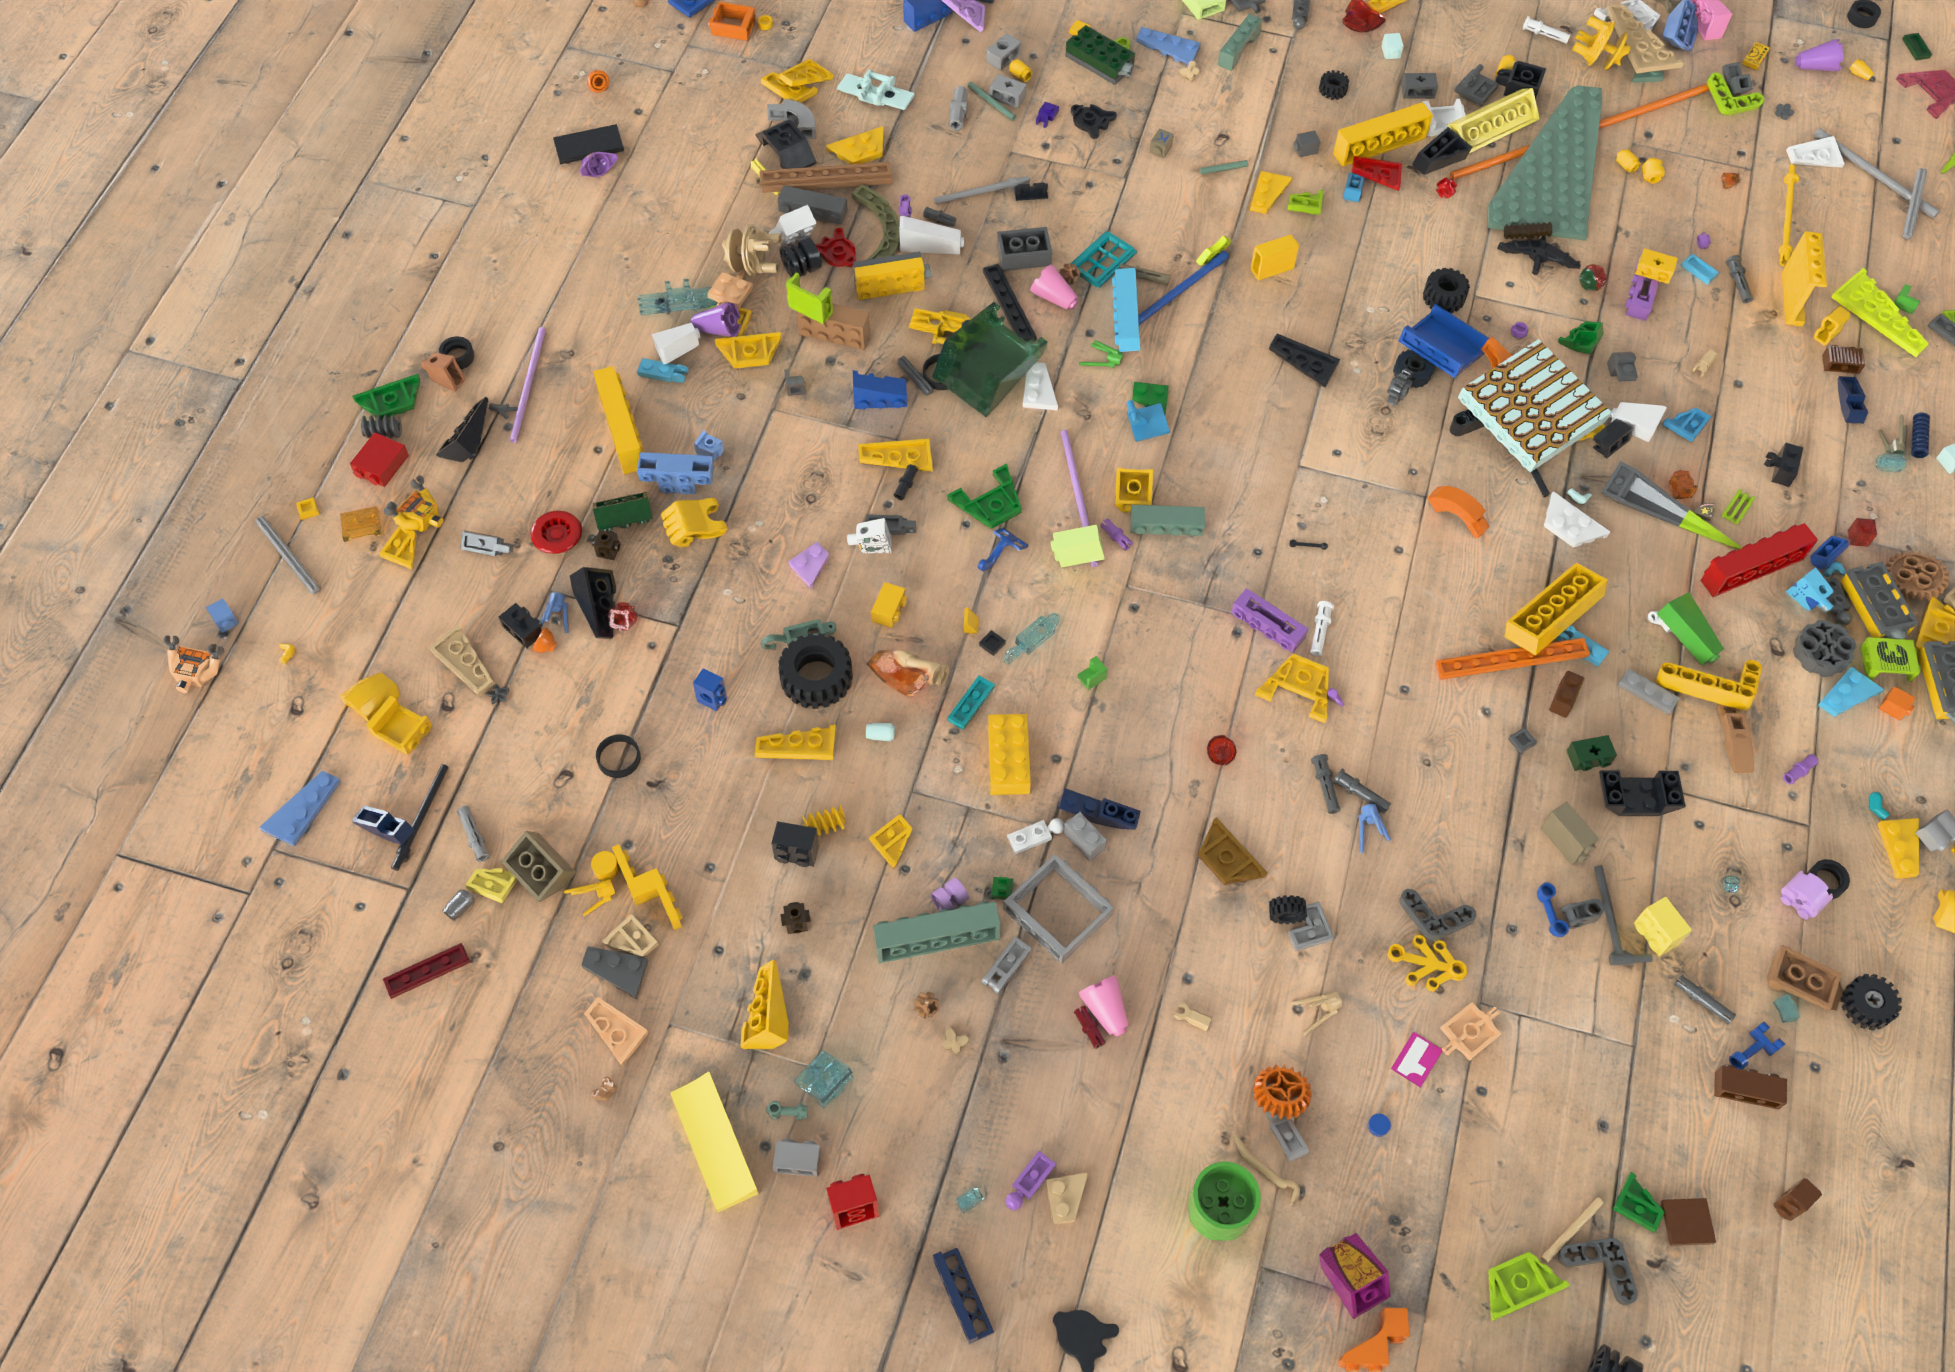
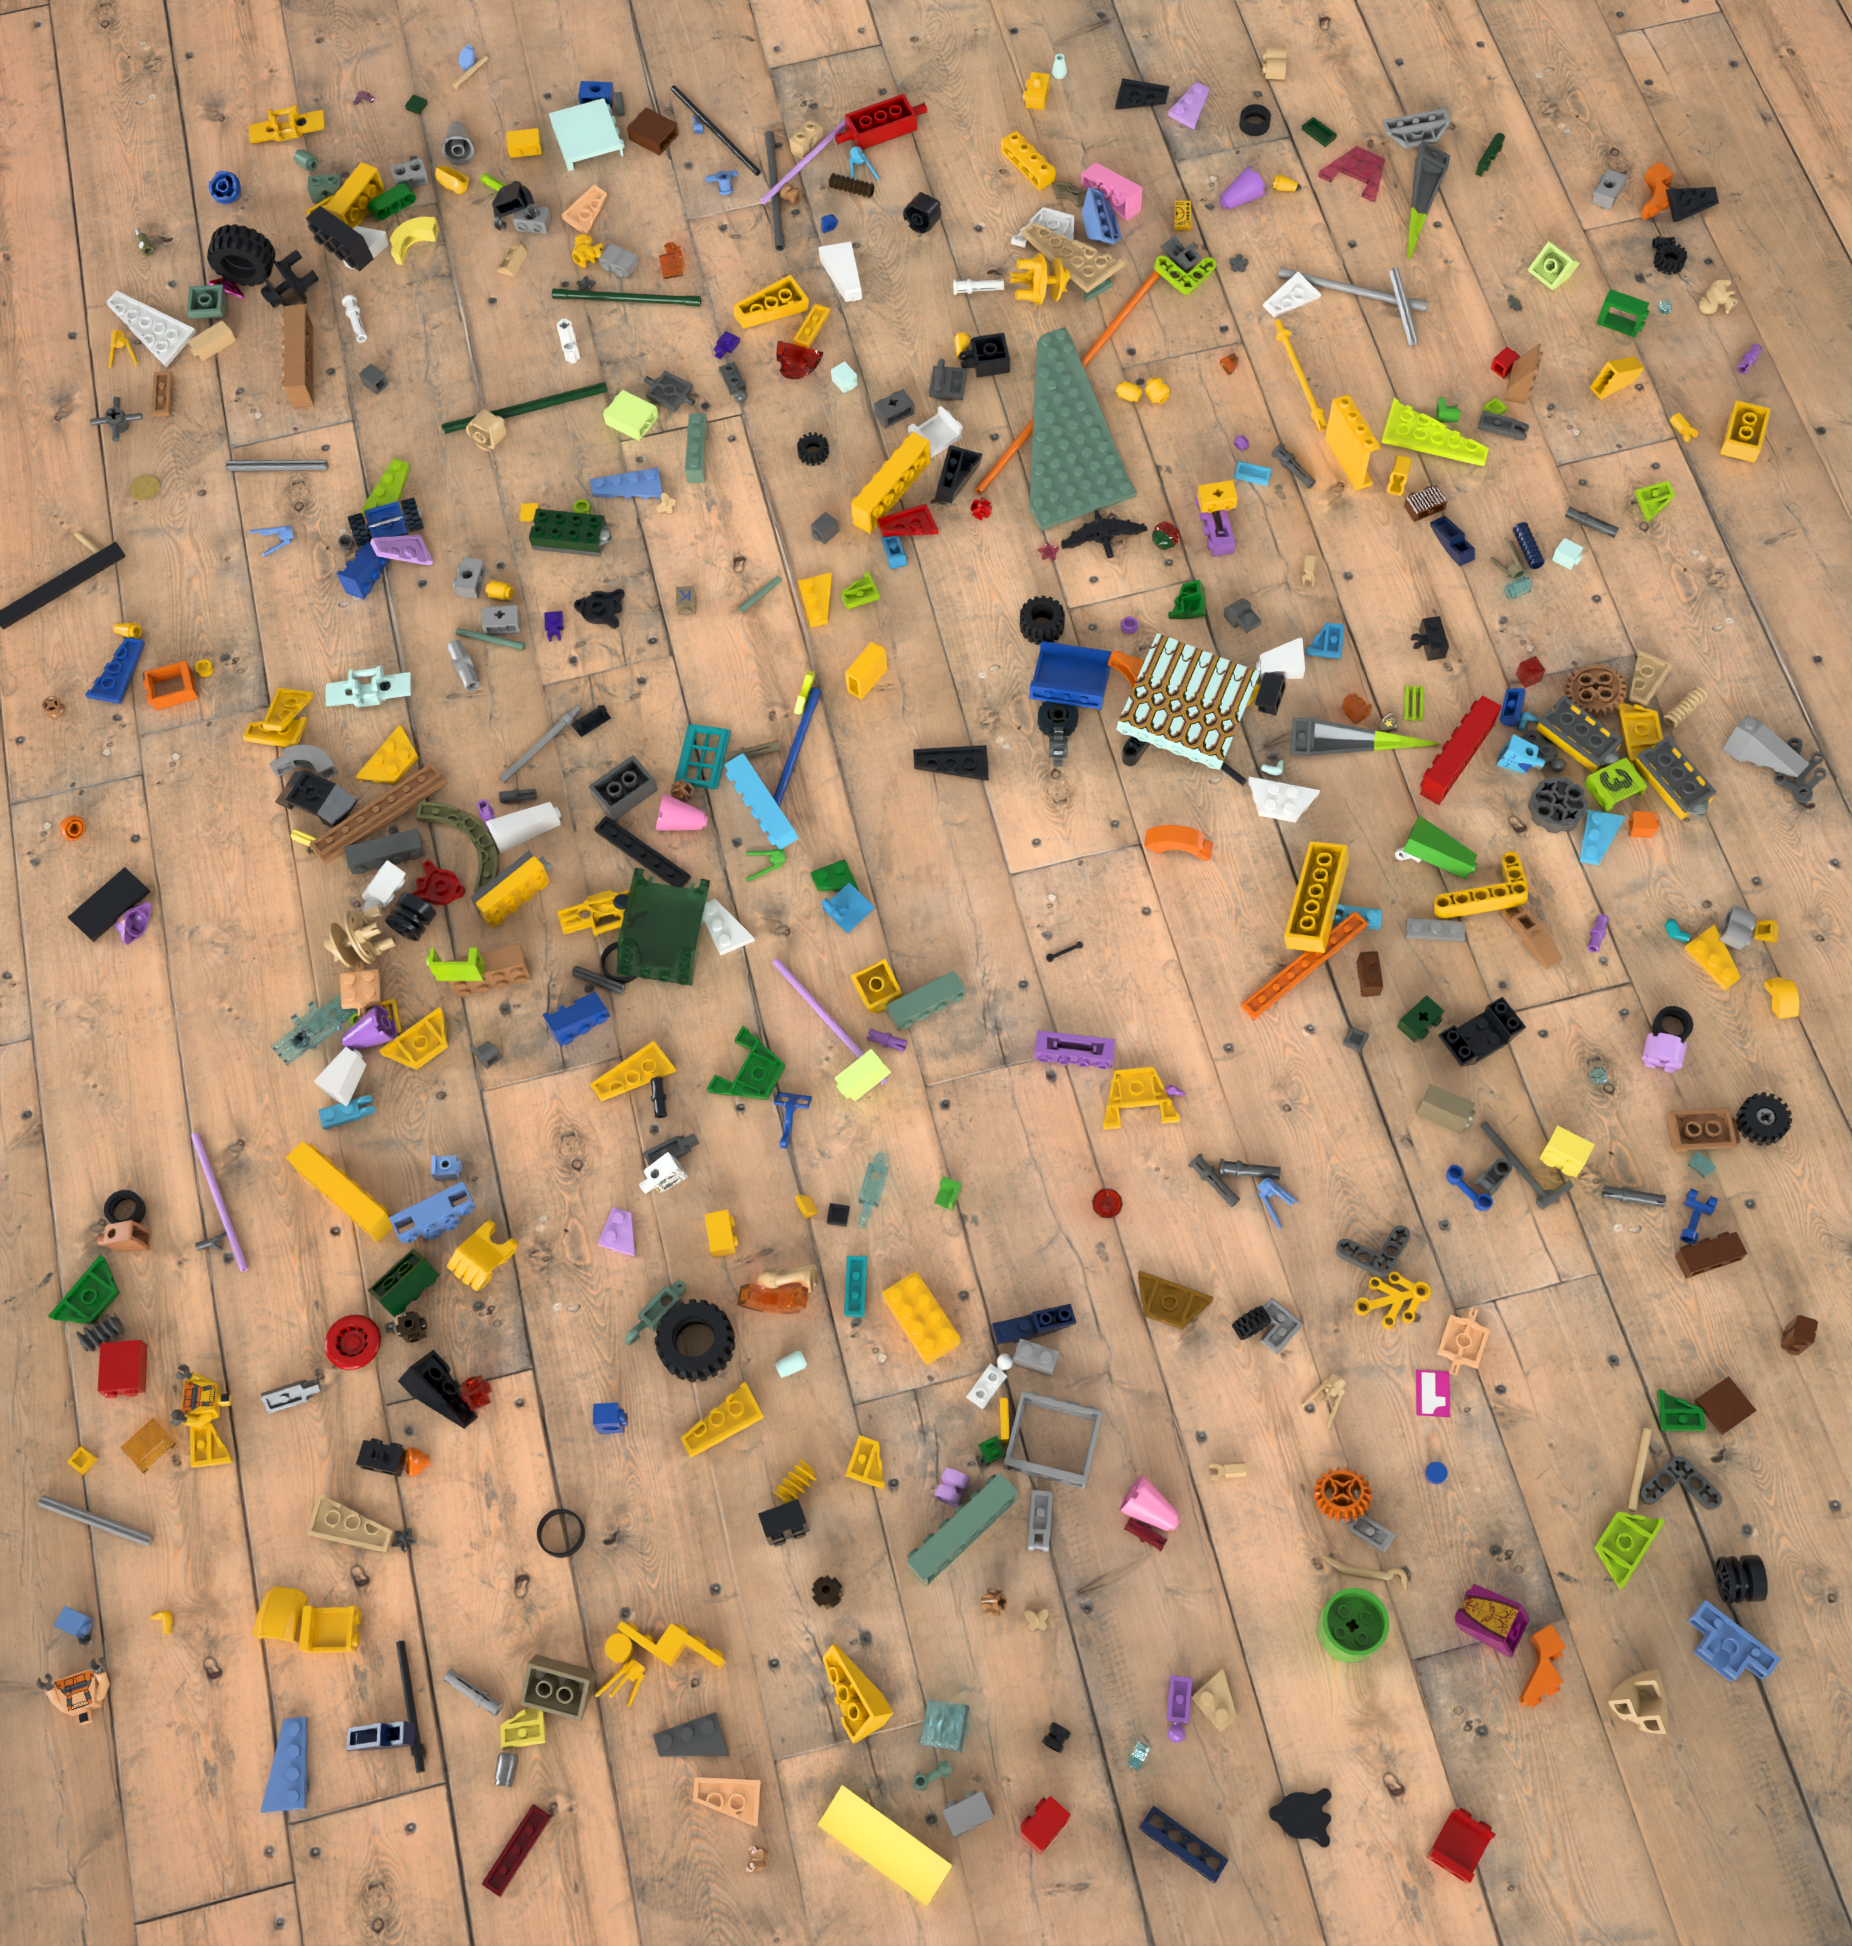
camera: 25 degrees left, 5 degrees up
(467, 435) = (196, 1293): black wedge -> none
(555, 604) = (400, 1416): medium blue plant -> none
(631, 938) = (689, 1701): tan wing -> none
(910, 1142) = (1056, 1737): none -> black wheel
(1027, 868) = (1004, 1419): none -> yellow tile
(1322, 620) = (1119, 1022): white pin -> none
(1485, 246) = (1048, 551): none -> clear pink plant
(1497, 119) = (986, 410): light yellow arch -> none
(1527, 230) = (1080, 516): dark brown piece -> none

